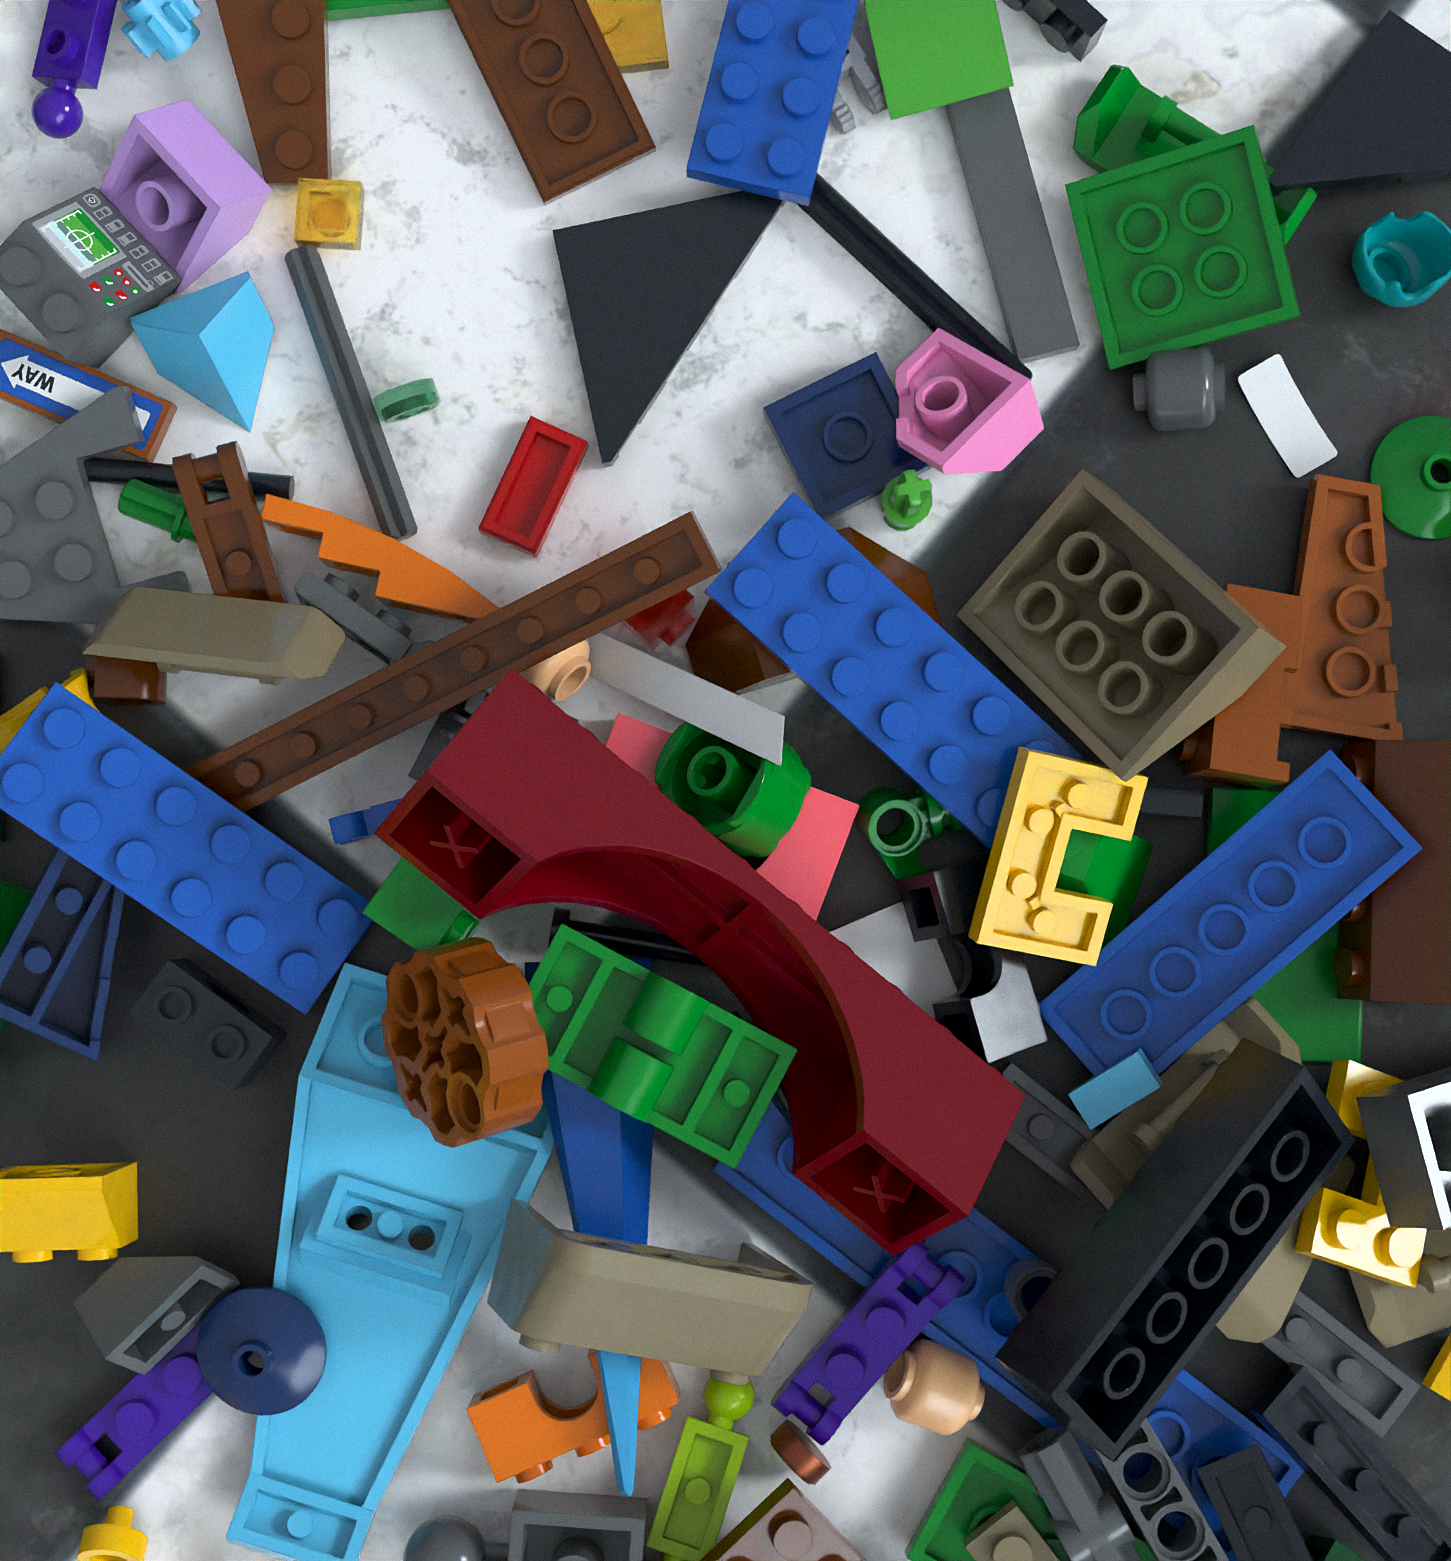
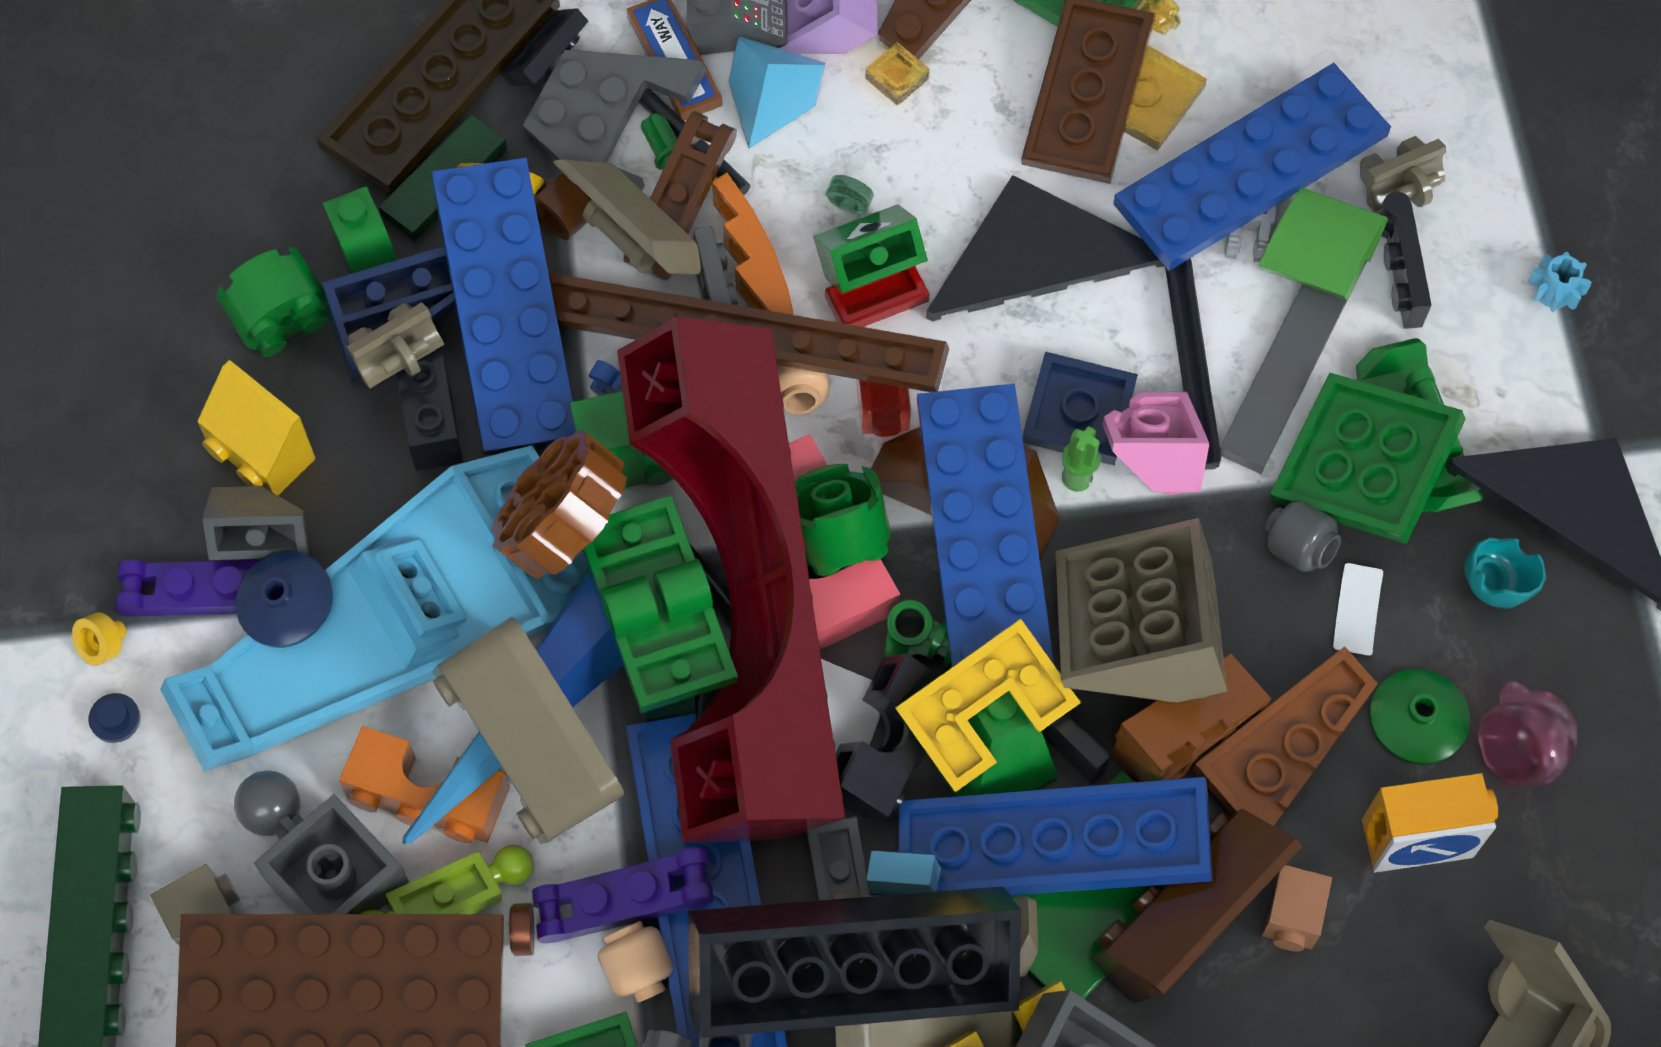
camera: 45 degrees right, 20 degrees down
(120, 1005) = (395, 344): none -> dark tan hips
(350, 392) = (822, 168): dark grey axle -> none
(489, 447) = (870, 248): none -> green brick
(687, 697) = (854, 448): white sticker -> none

